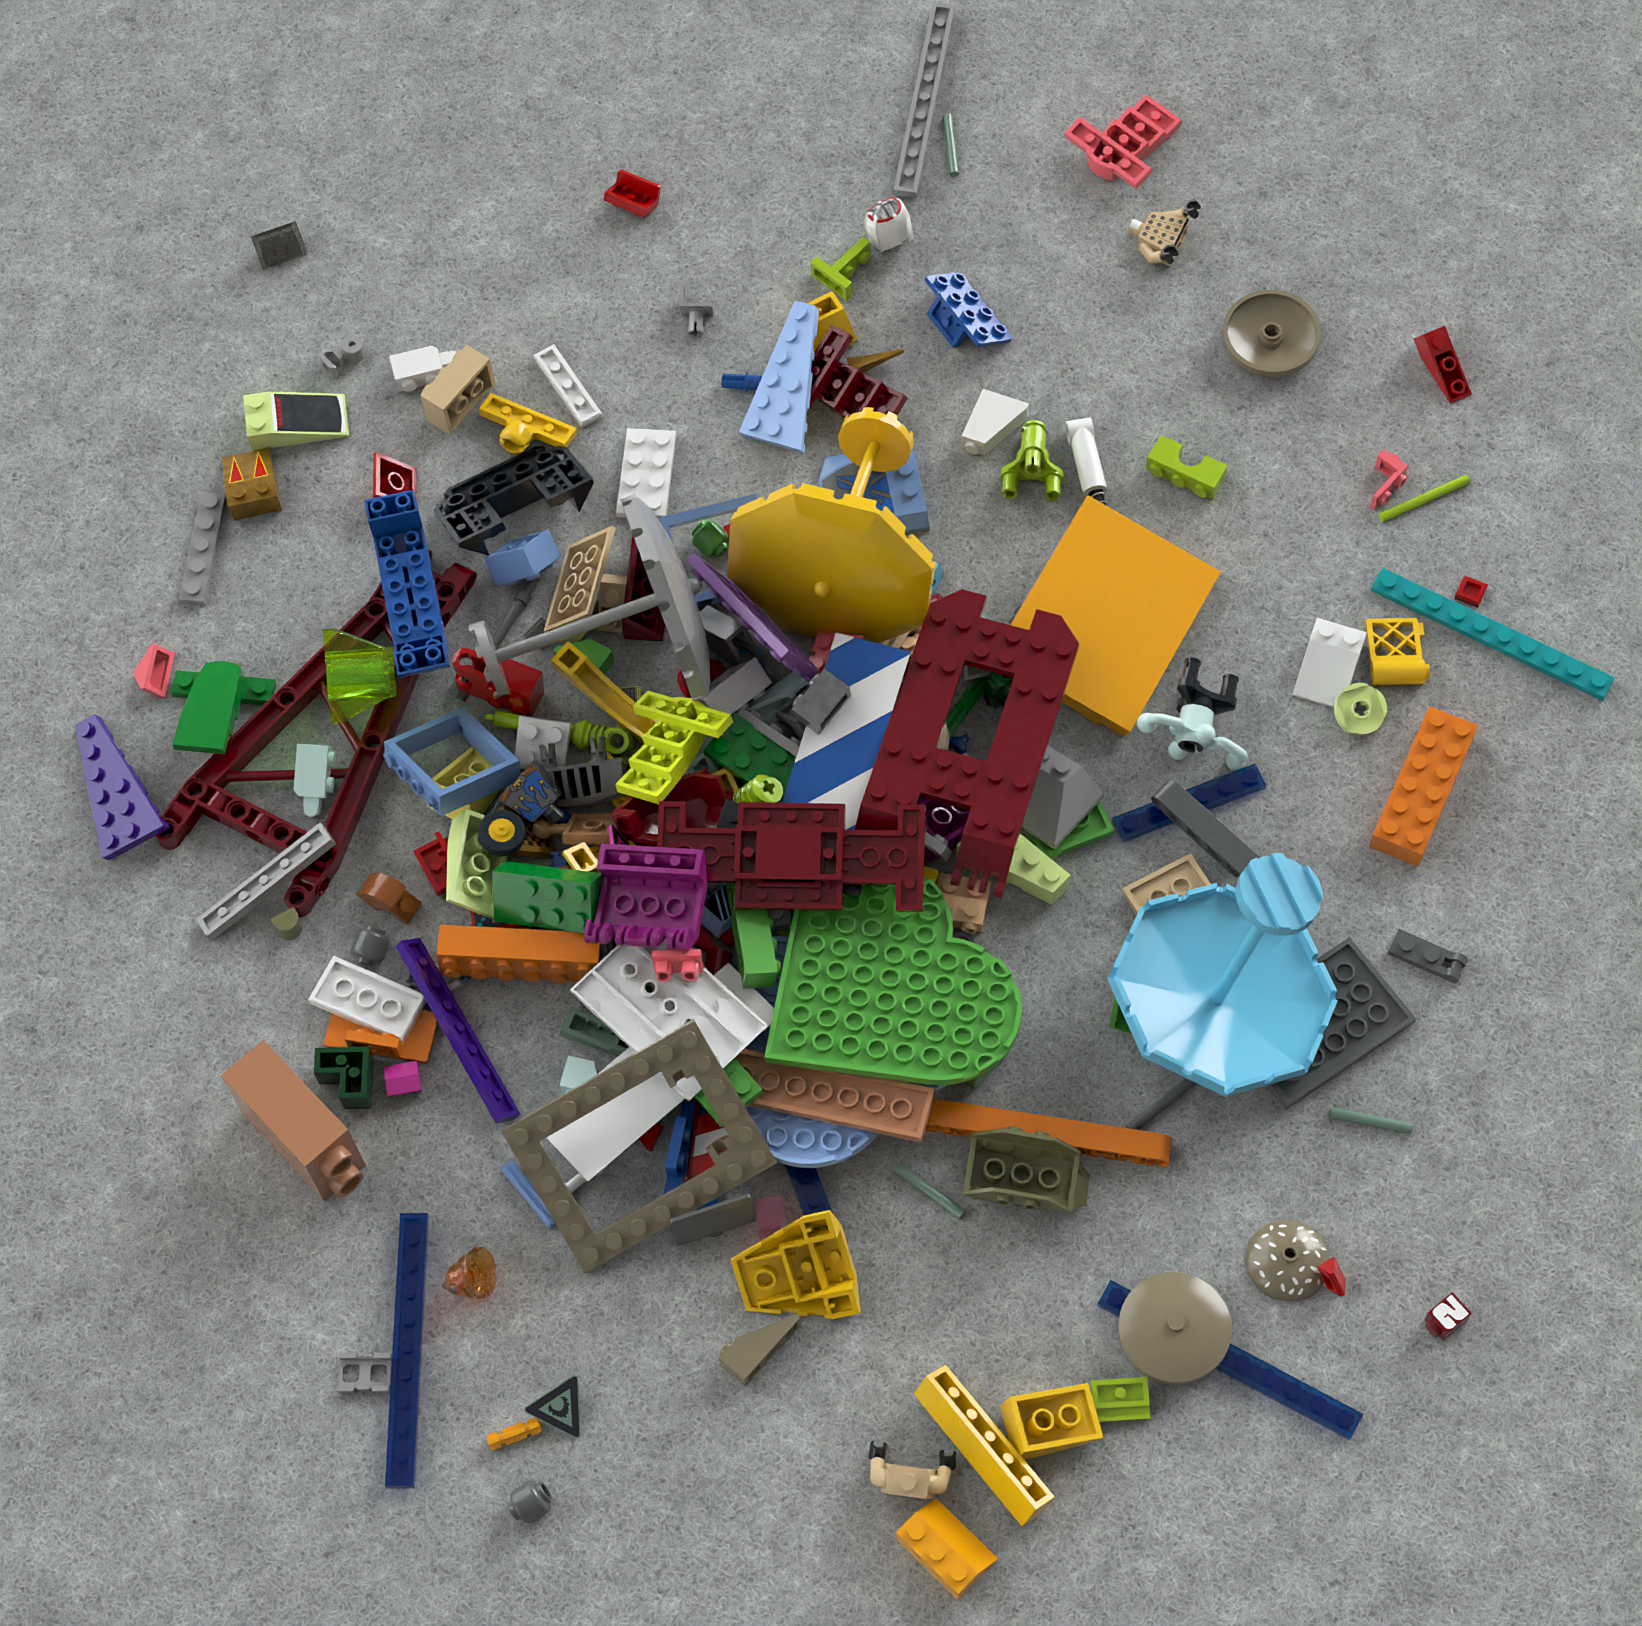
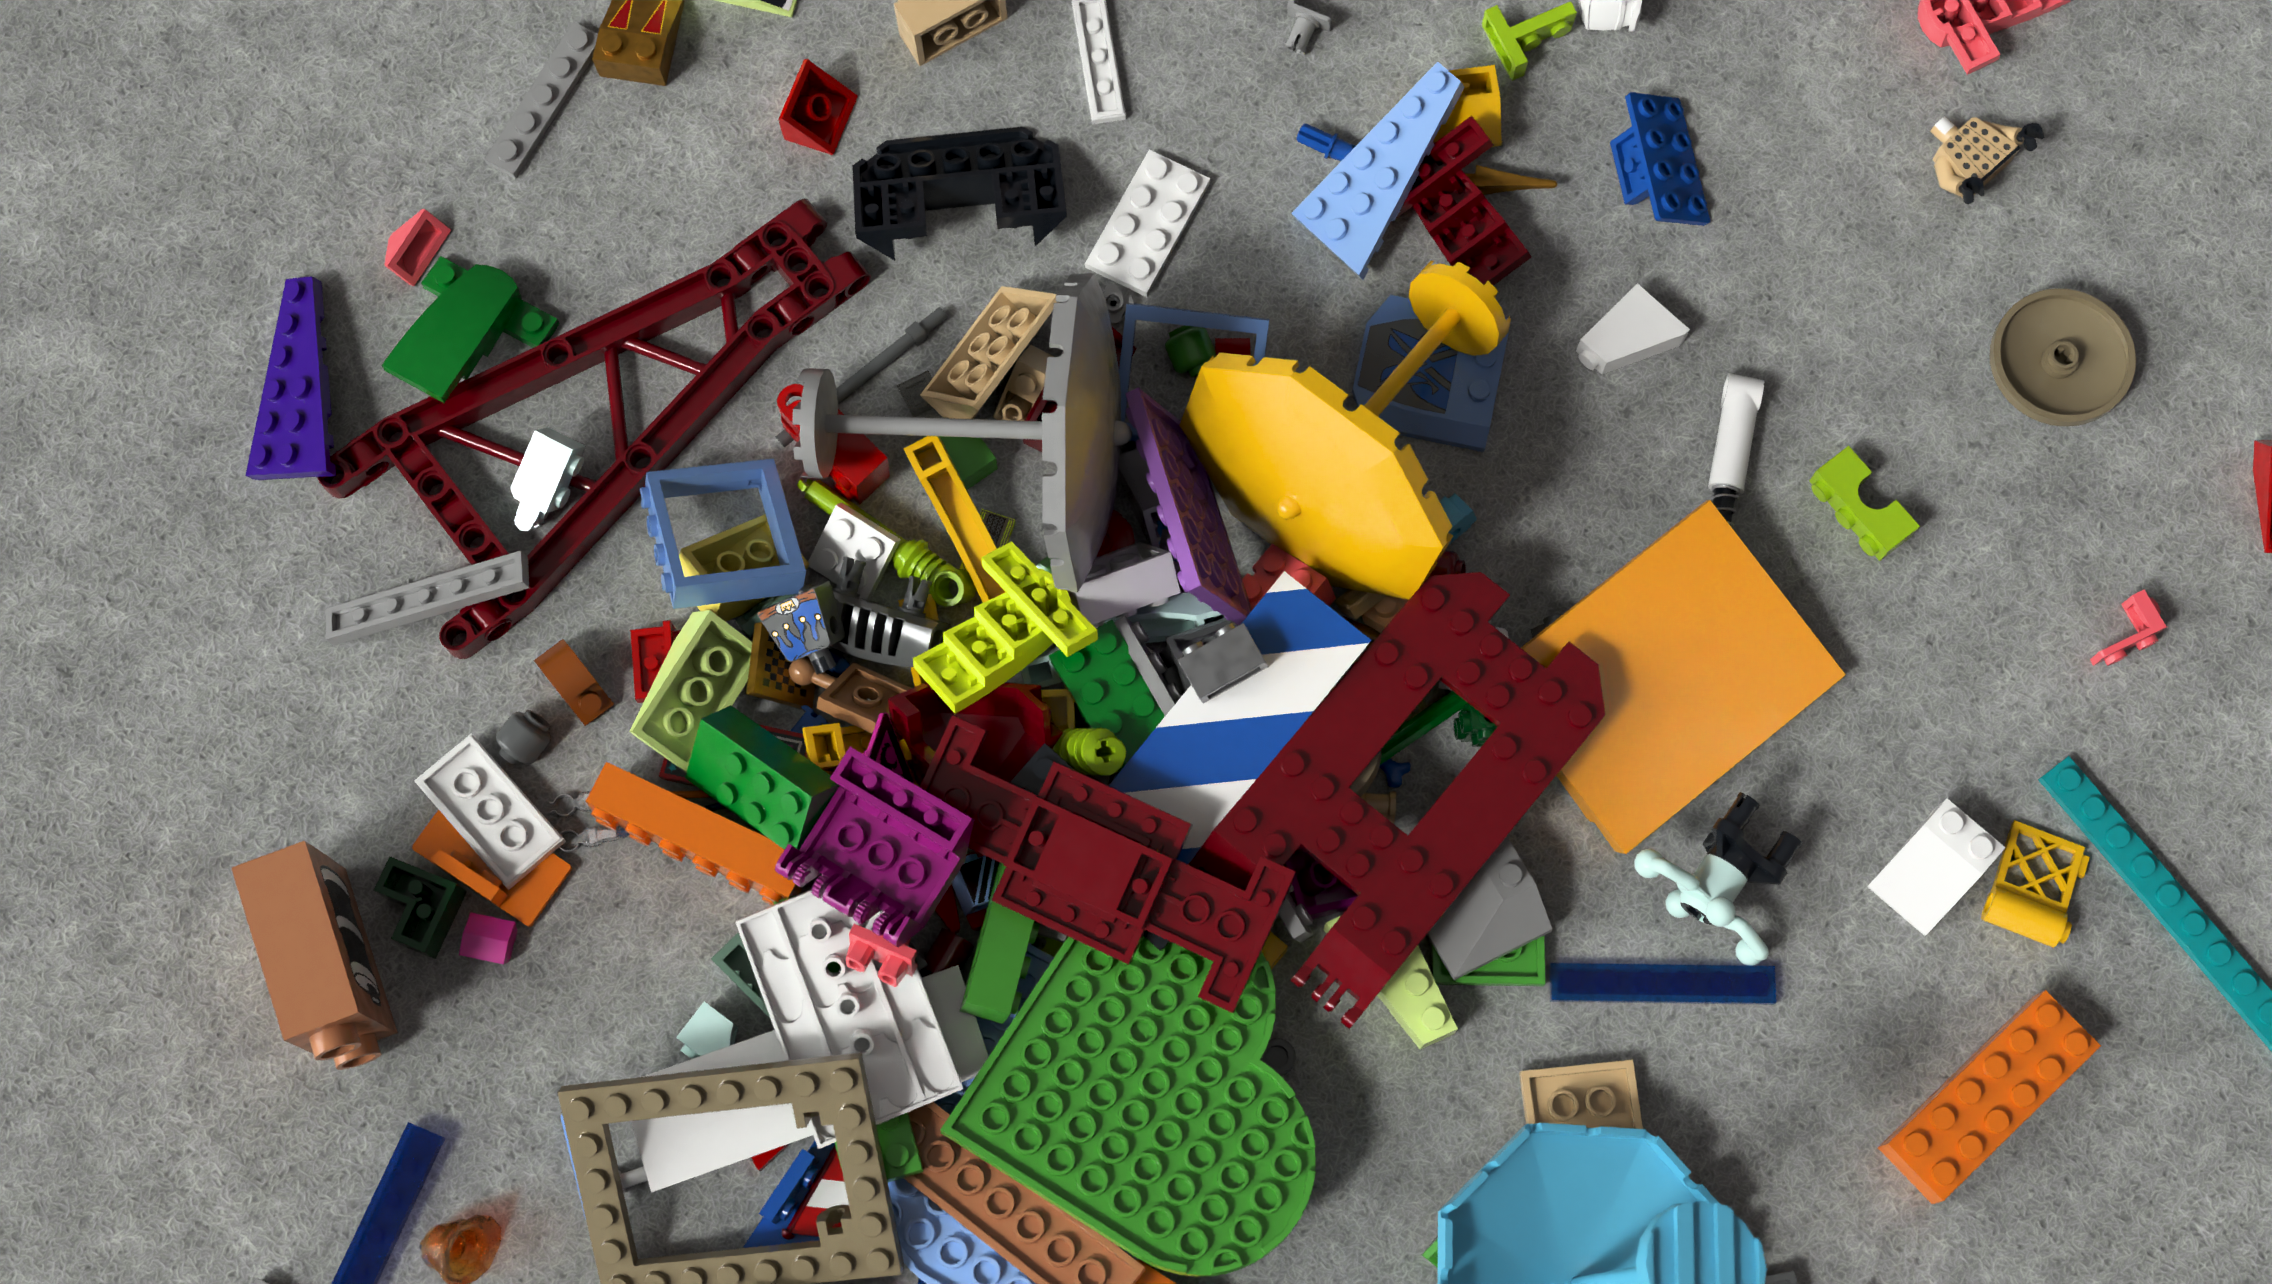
camera: 20 degrees right, 10 degrees up
(287, 924) = (434, 664): olive brick -> none
(356, 674) = (647, 364): clear neon green brick -> none
(408, 584) = (765, 272): blue slope -> none
(458, 1030) = (582, 904): dark purple plate -> none
(501, 833) = (741, 663): black wheel -> none
(522, 558) = (936, 281): medium blue slope -> none
(524, 425) = (1018, 93): yellow plate -> none
(966, 906) = (1295, 1009): light nougat plate -> none
(1032, 464) = (1658, 416): lime wheel -> none
(1203, 827) = (1668, 1040): dark grey beam -> none
(1367, 696) = (1963, 966): yellowish green plate -> none
(1424, 498) = (2169, 677): lime bar -> none
(1471, 591) = (2175, 838): red tile -> none

